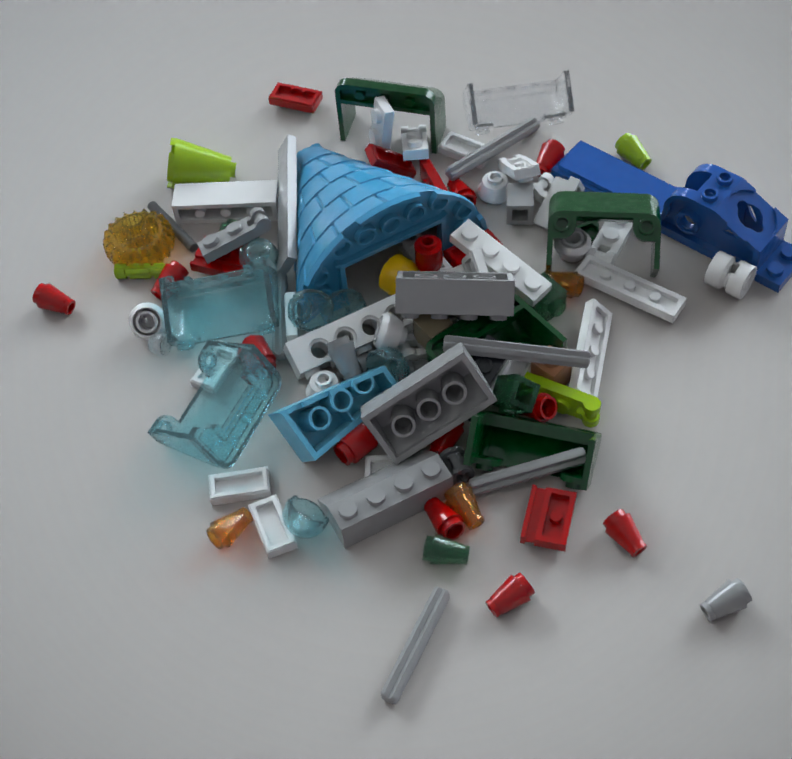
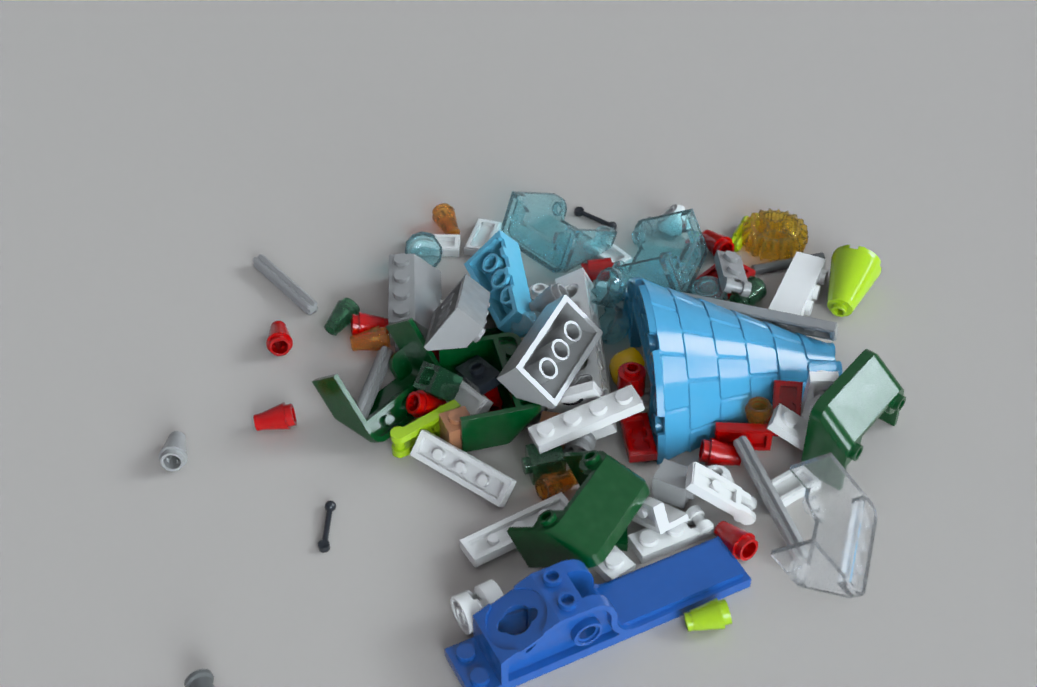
camera: 110 degrees right, 10 degrees down
(52, 299) = (735, 179): red cone -> none
(151, 417) = (579, 211): none -> black hinge
(295, 97) = (932, 380): red plate -> none
(411, 167) = (758, 410): none -> clear orange cone
(520, 351) = (468, 385): light grey axle -> none
(548, 518) = (320, 368): red plate -> none
(738, 422) = (324, 545): none -> black hinge

